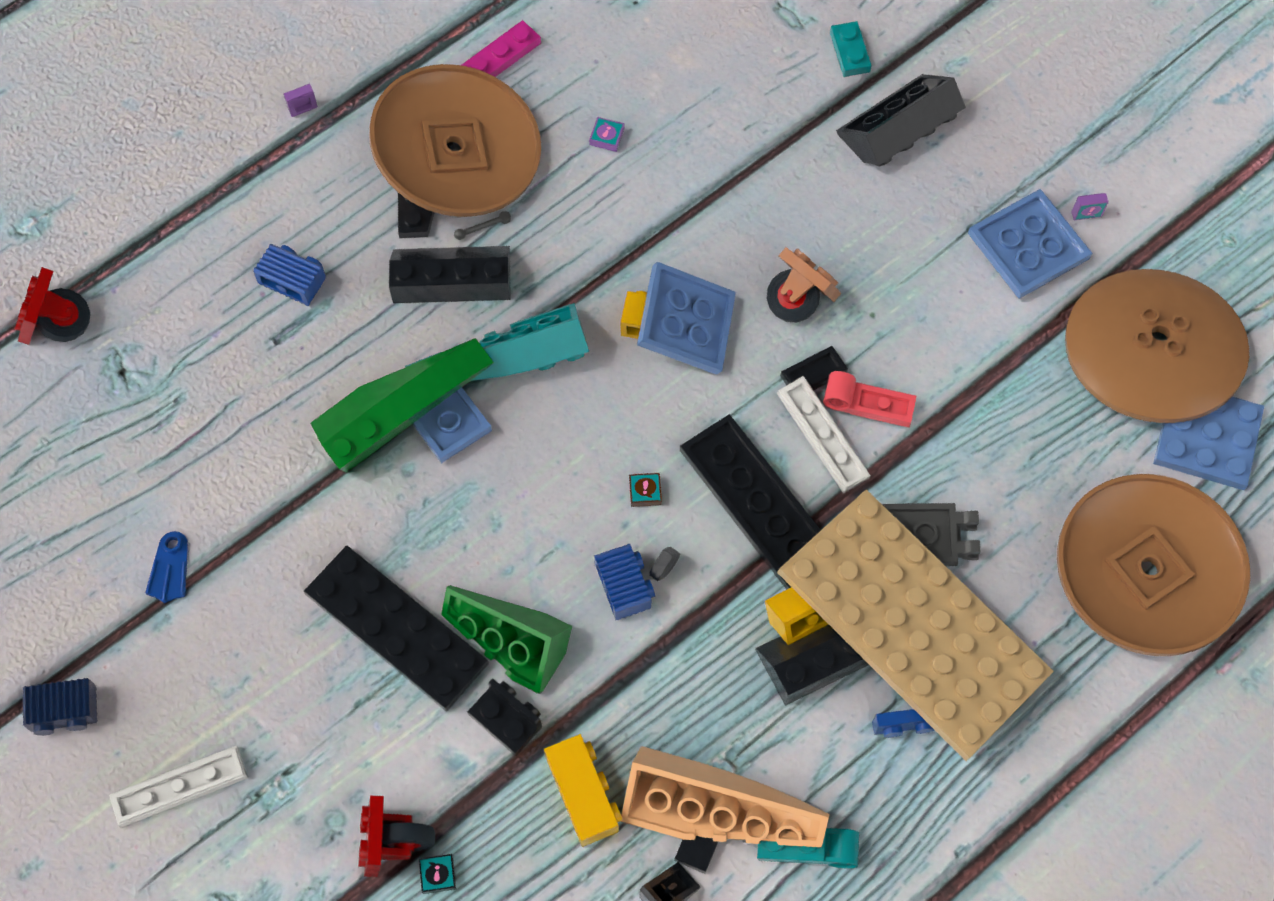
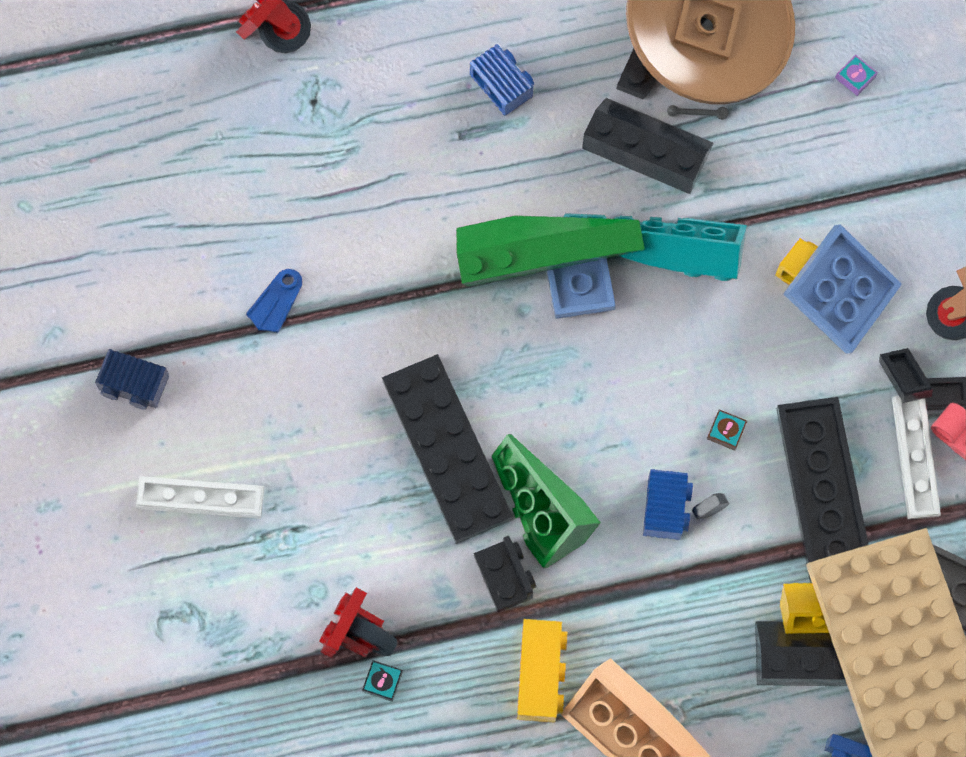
camera: 25 degrees right, 5 degrees up
(779, 368) = (905, 375): none -> black tile

